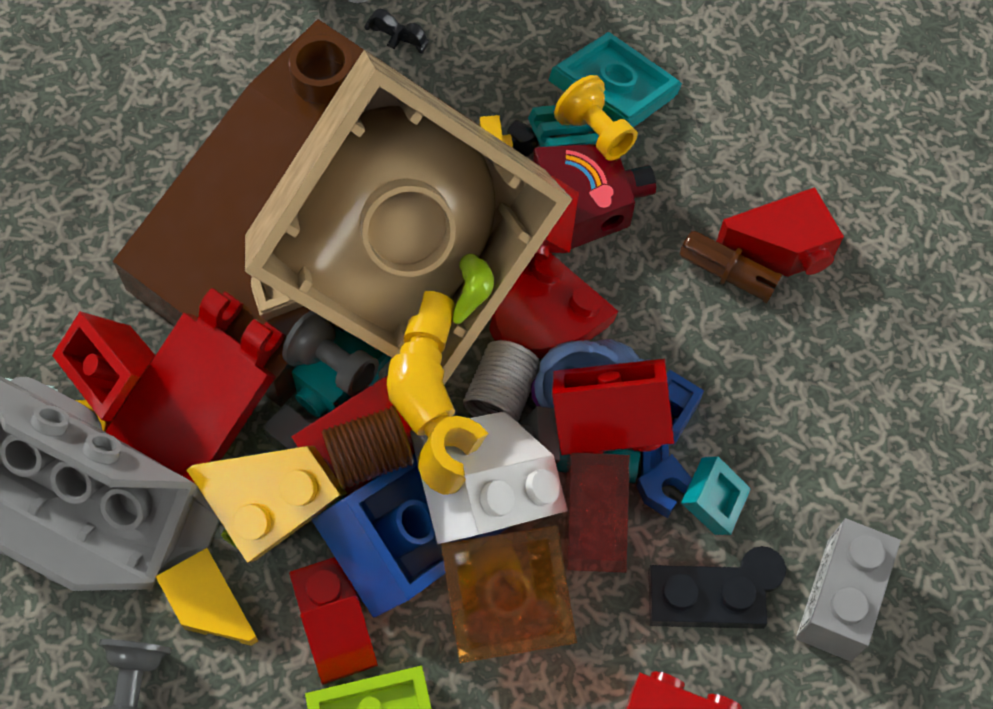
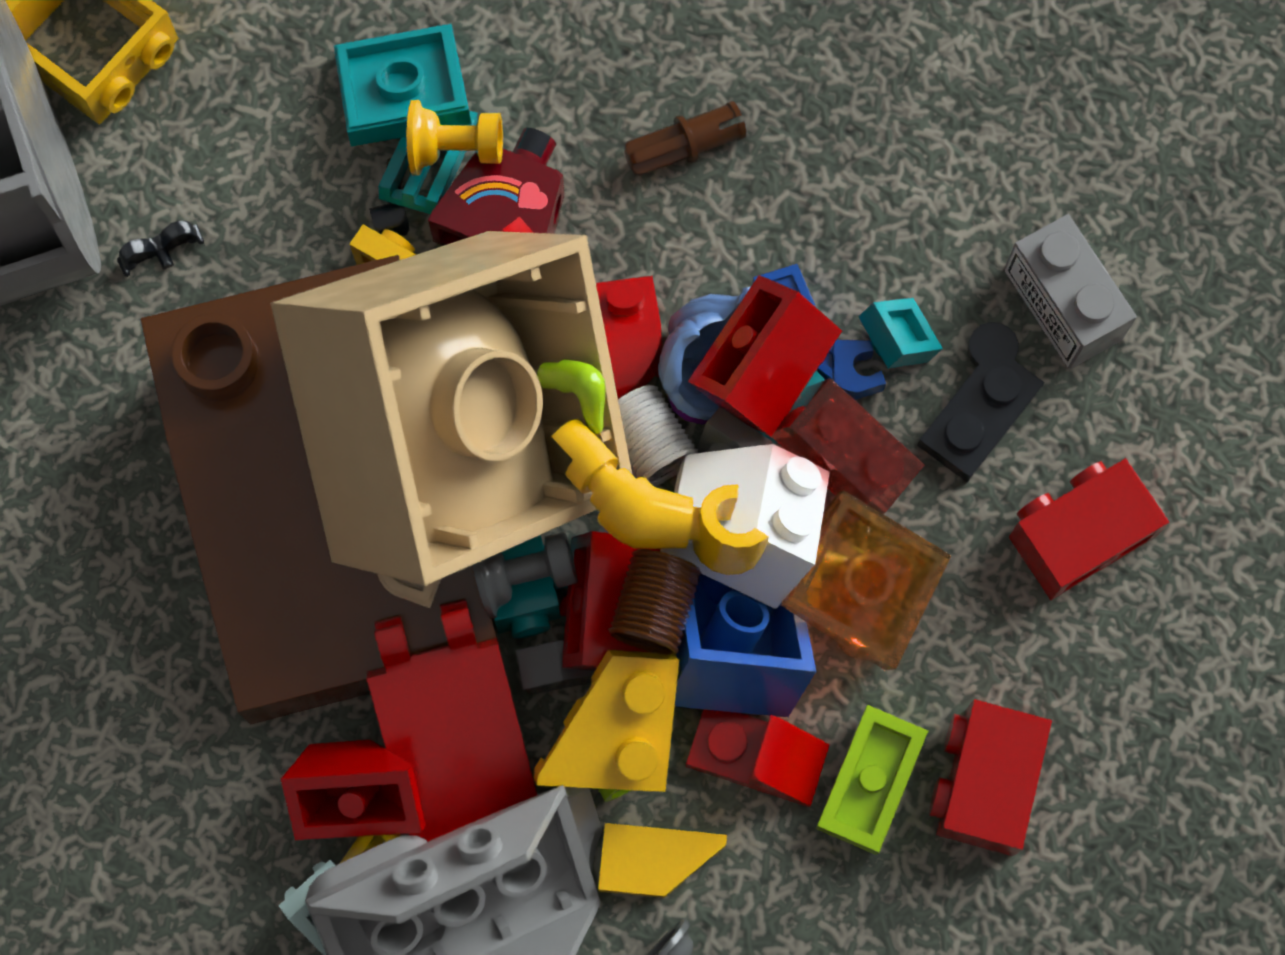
camera: 50 degrees left, 10 degrees up
(786, 234) = (697, 64): red slope -> none

